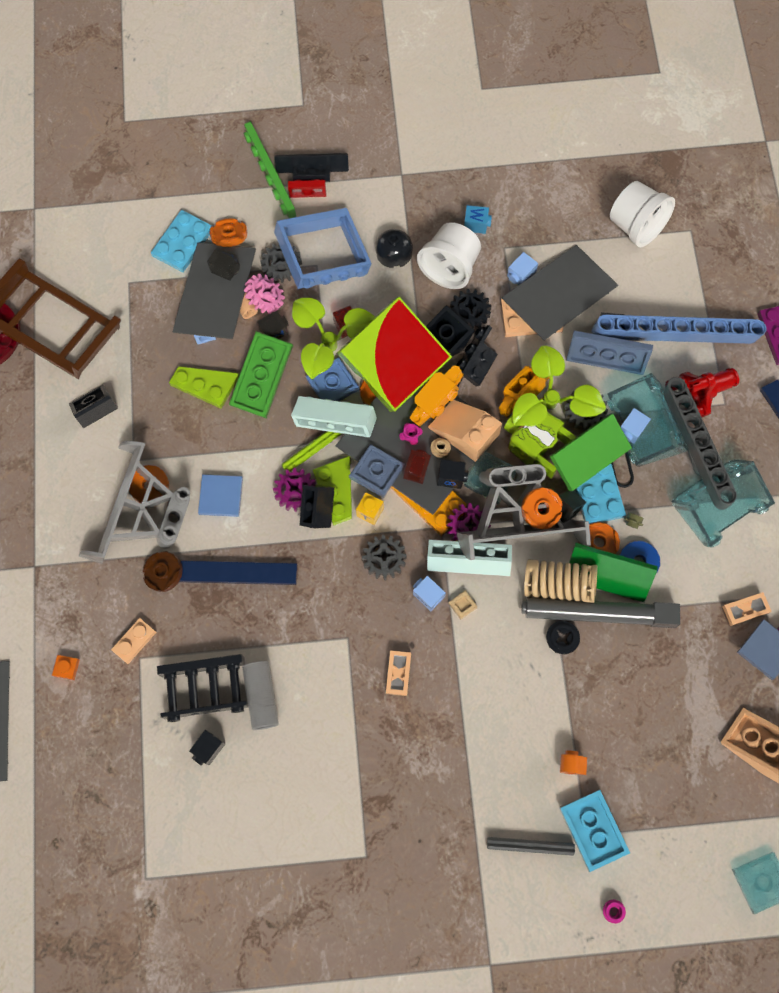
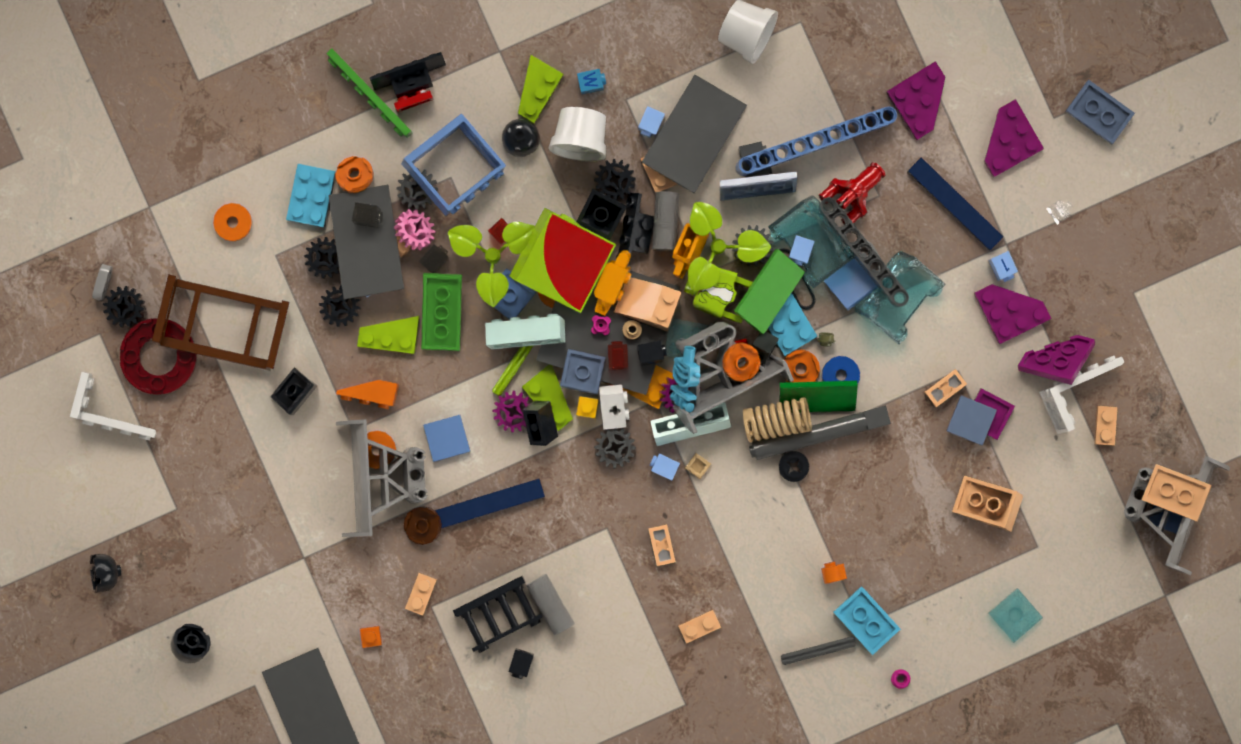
camera: 20 degrees left, 15 degrees up
(99, 232) = (221, 222): none -> orange tile
(161, 295) = (317, 263): none -> black gear
(162, 348) = (336, 314): none -> black gear
(165, 427) = (375, 391): none -> orange slope
(389, 524) = (610, 397): none -> white brick
(409, 774) = (699, 626): none -> light nougat piece
(425, 213) = (538, 87): none -> lime wing
(482, 499) = (686, 375): none -> medium azure torso
(507, 359) = (666, 219): none -> light grey piece
(675, 475) = (850, 284): none -> medium blue tile

